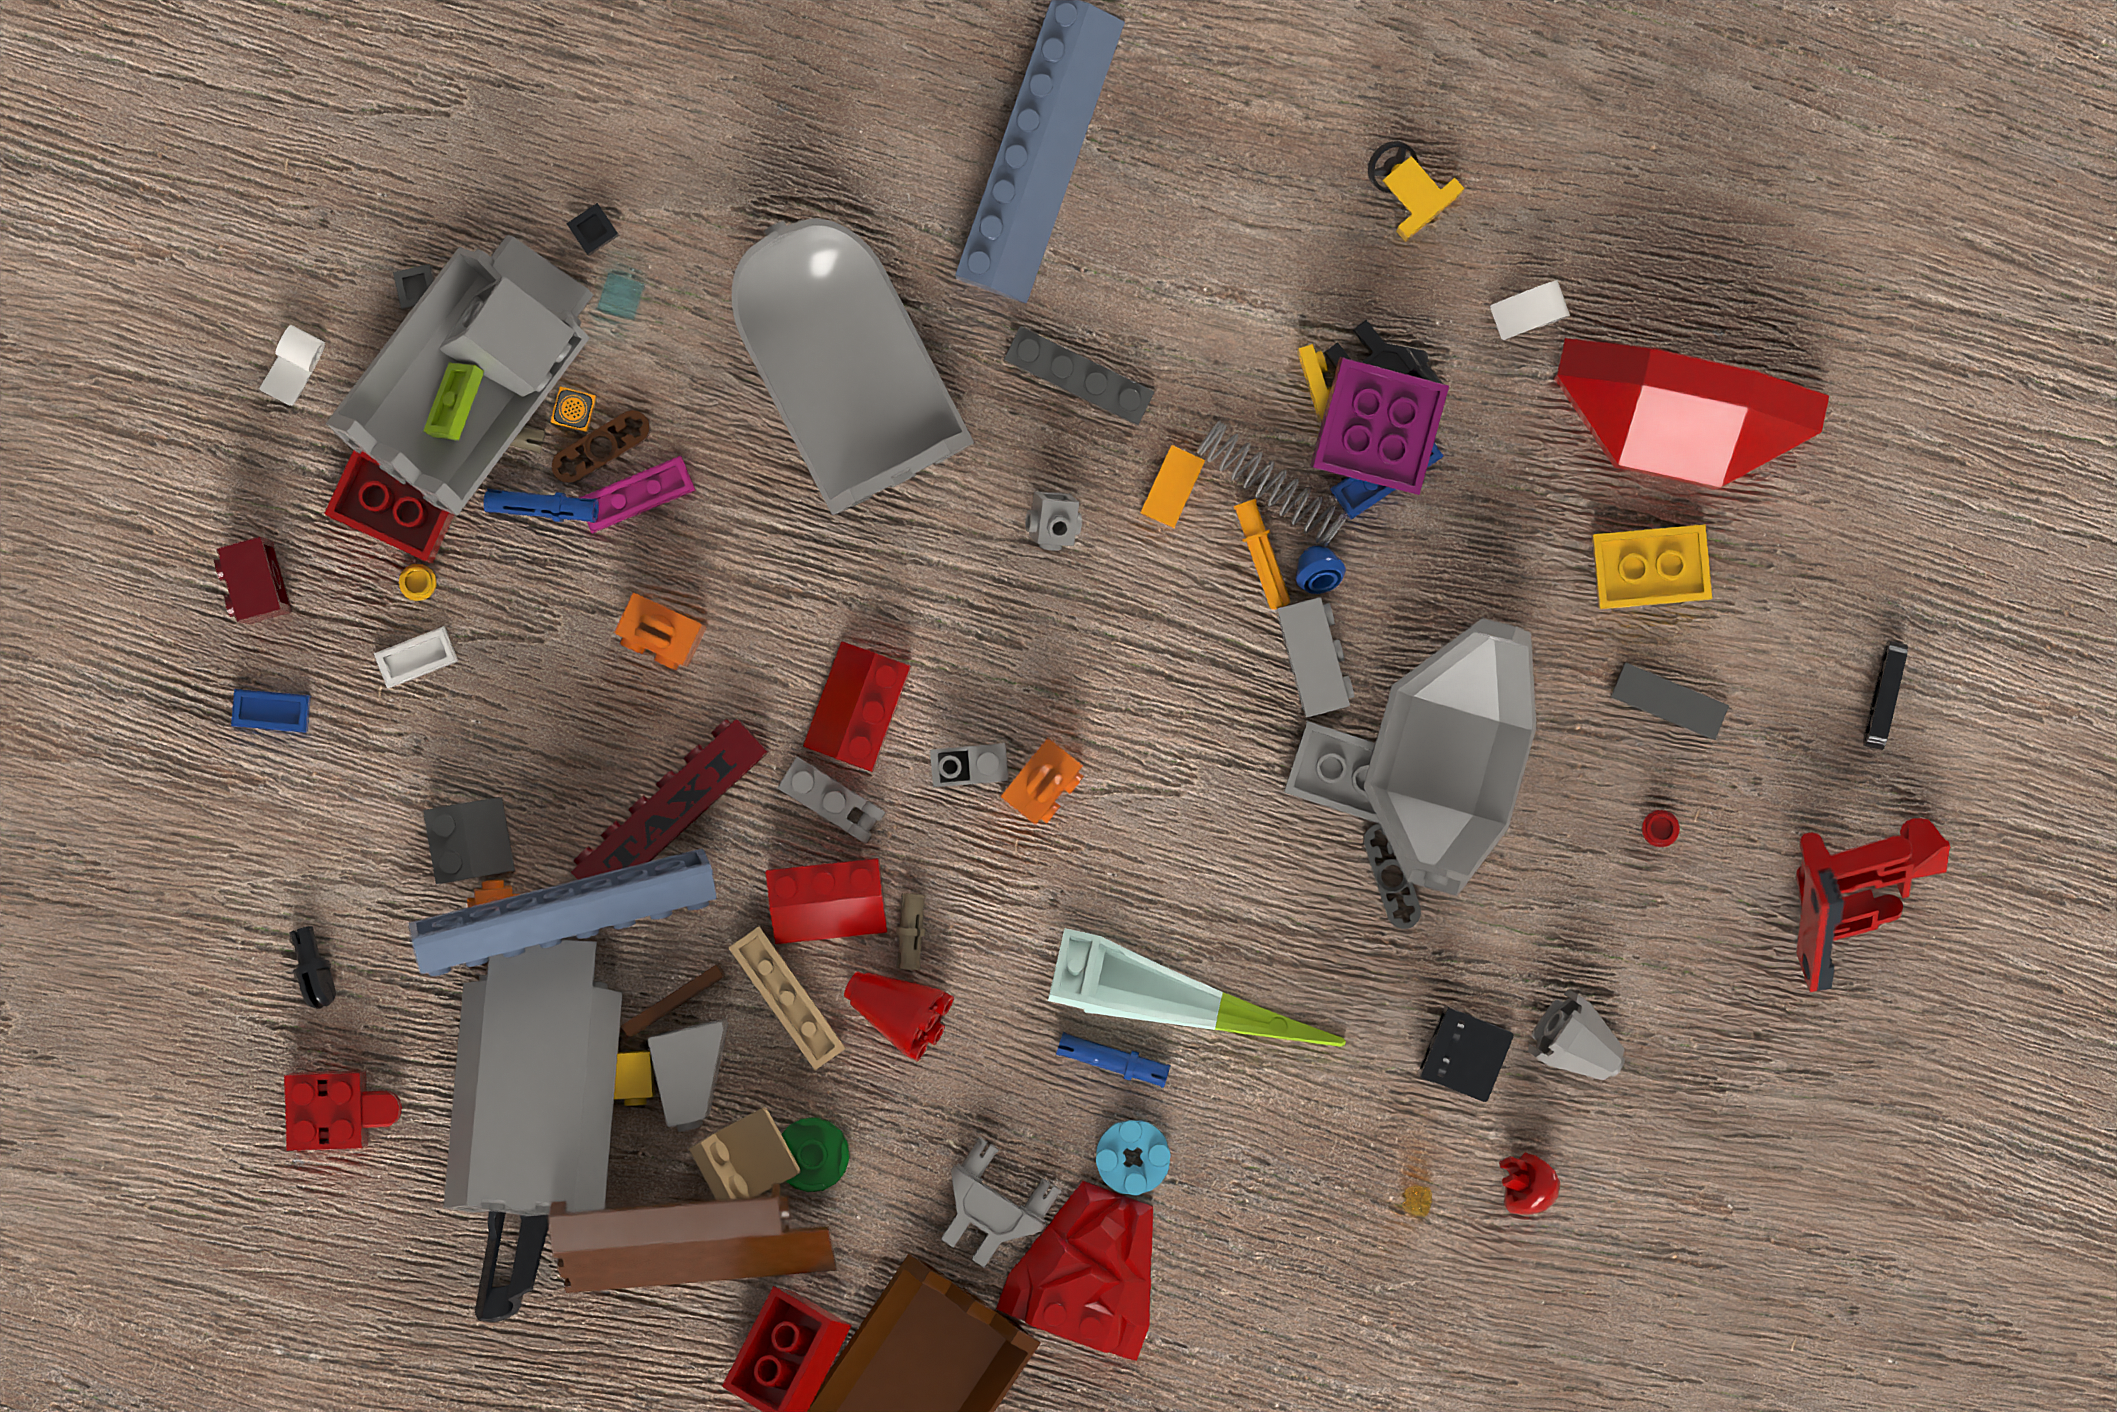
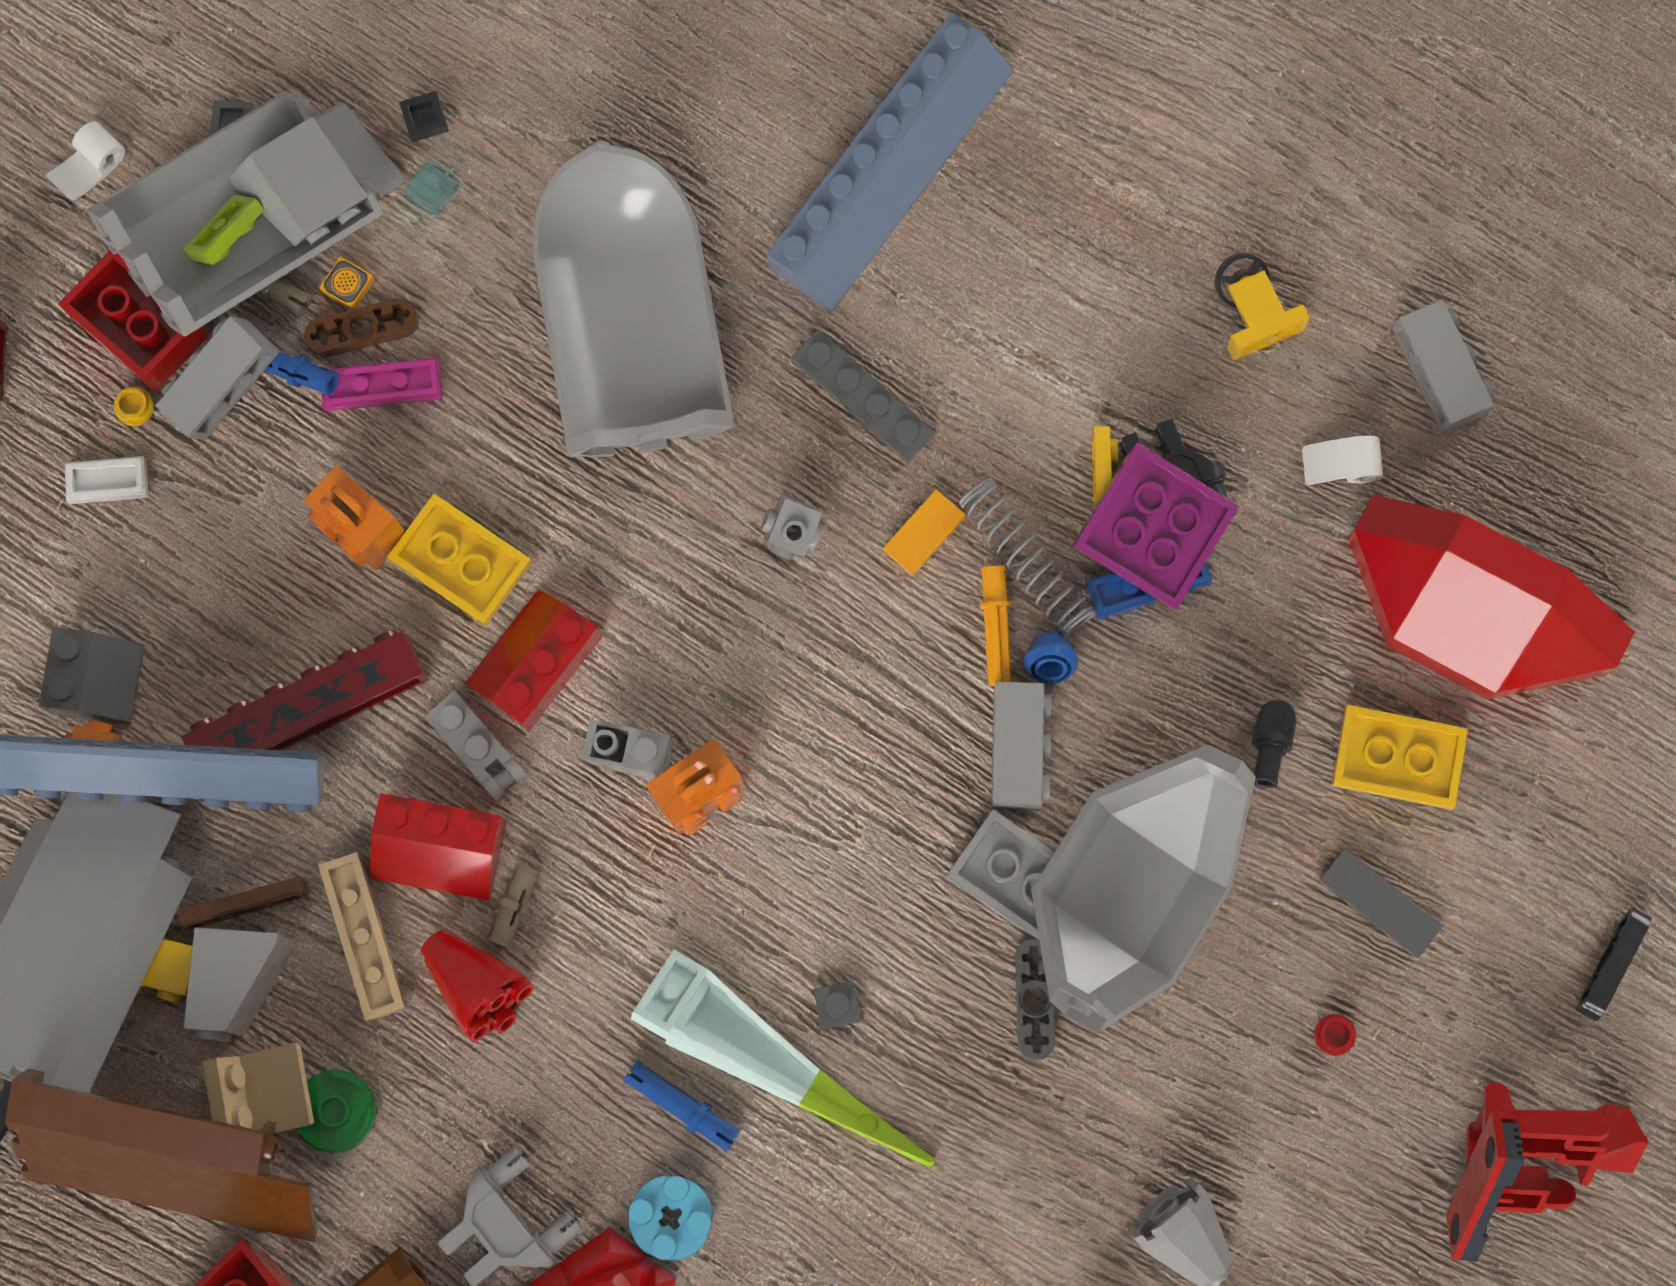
camera: 20 degrees right, 10 degrees down
(488, 536) = (217, 377): none -> light grey brick
(762, 636) = (459, 559): none -> yellow plate
(1221, 932) = (837, 1005): none -> dark grey plate
(1465, 1054) = (1059, 1214): black bracket -> none
(1536, 584) = (1272, 739): none -> black arm
(1597, 194) = (1444, 366): none -> light grey brick

